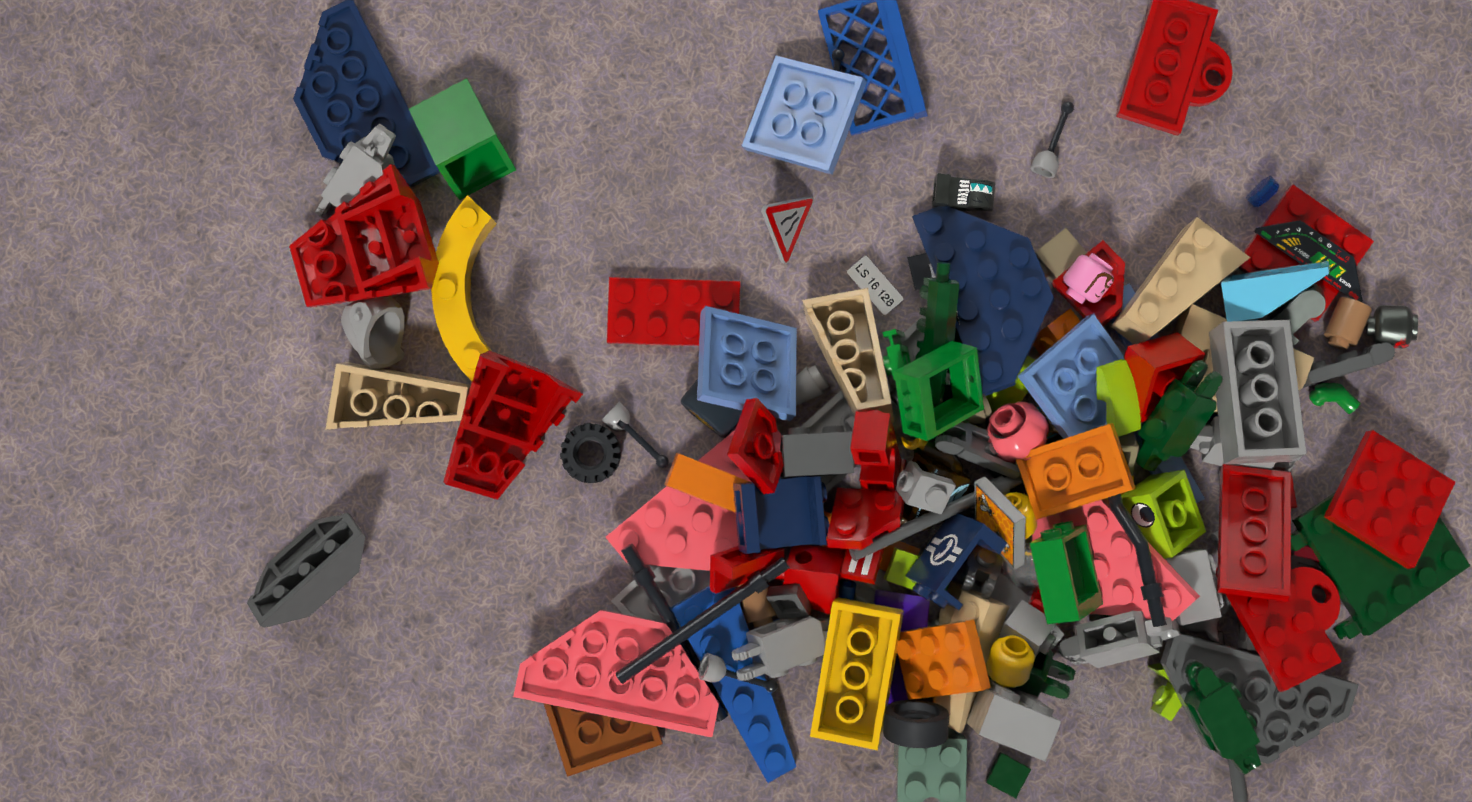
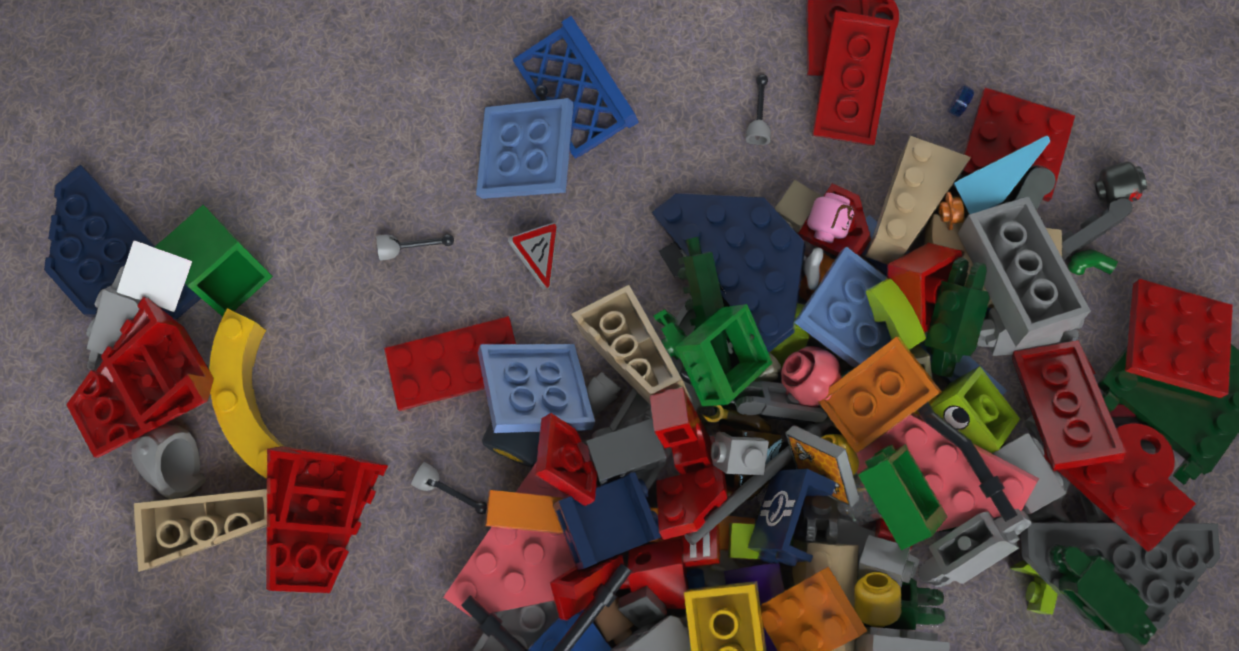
camera: 15 degrees left, 10 degrees down
(406, 146) = (154, 275): none -> white sticker
(571, 447) = (389, 516): black tyre -> none
(641, 175) = (389, 246): none -> hinge
(880, 289) = (644, 288): white sticker -> none
(963, 193) = (692, 178): pearl dark grey leg -> none
(1052, 326) = (811, 267): none -> light grey piece
(1161, 137) = (854, 78): none -> red plate
(1210, 308) = (951, 211): none -> orange plate
(1311, 247) = (1016, 134): black sticker -> none
(1347, 323) = (1078, 192): medium nougat brick -> none

